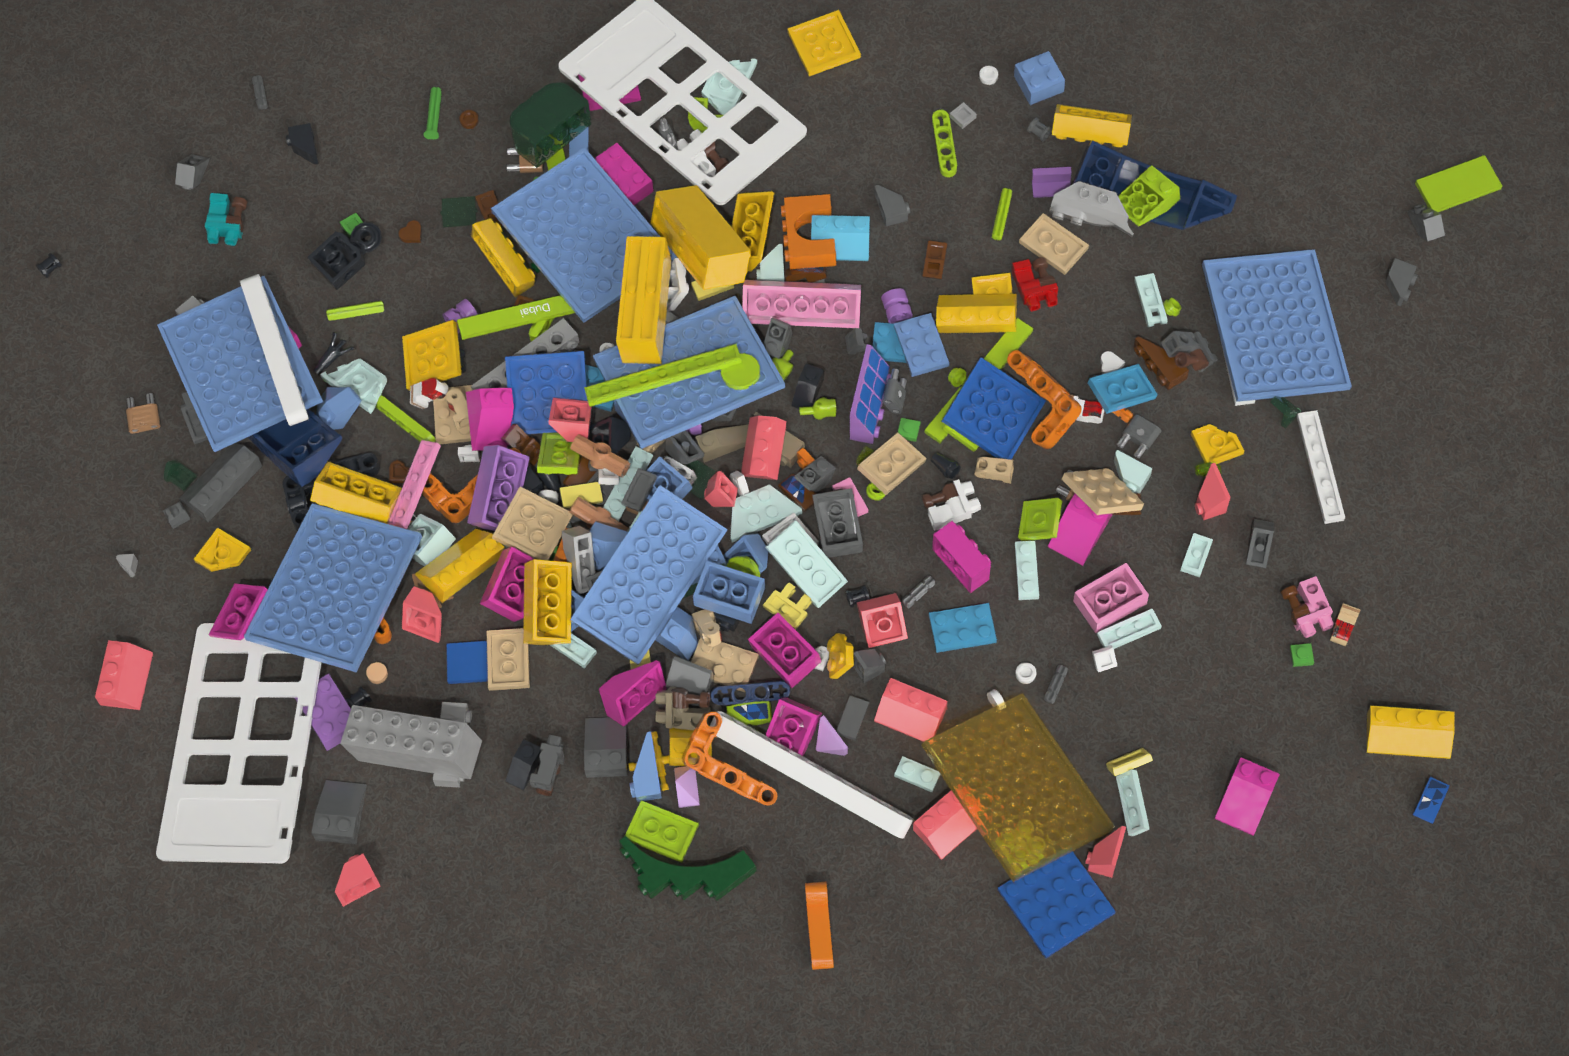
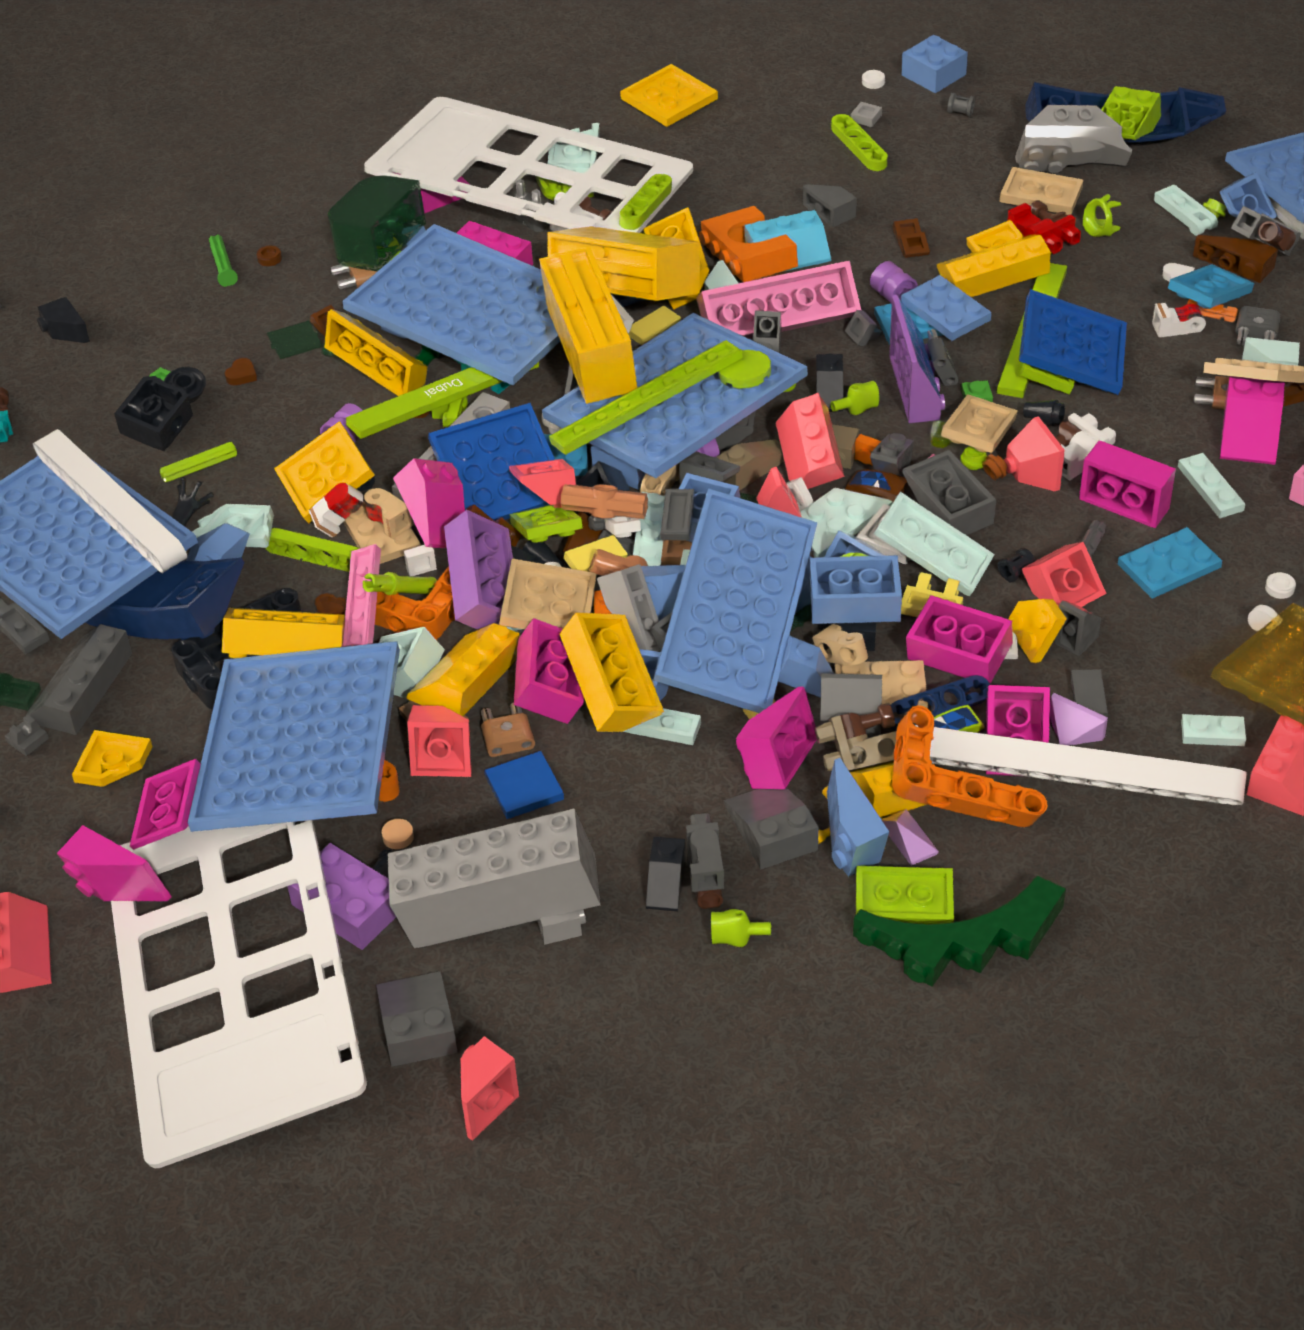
camera: 20 degrees left, 20 degrees down
(188, 643) = (109, 869): none -> dark pink slope
(437, 477) = (391, 584): none -> lime pin
(471, 619) = (507, 733): none -> medium nougat piece
(507, 660) = (581, 763): tan plate -> none
(548, 818) = (734, 928): none -> lime piece
(751, 169) = (645, 201): none -> lime beam
(819, 925) = (1194, 940): orange beam -> none
(885, 504) = (995, 467): none -> dark orange plate
(910, 710) = (1163, 660): coral slope -> none
(911, 509) = (1036, 457): none -> coral slope
(957, 377) = (1006, 329): lime plate -> none
(994, 469) = (1108, 398): tan leg -> none
(1002, 214) = (964, 183): lime axle -> none
(1040, 519) = (1197, 426): lime plate -> none
(1050, 181) = (1000, 140): medium lavender panel -> none
(1059, 418) = (1134, 304): orange beam -> none
(1080, 291) = (1100, 227): none -> lime piece
(1091, 125) = (1014, 85): yellow slope -> none
(1196, 309) = (1247, 193): none -> medium blue slope

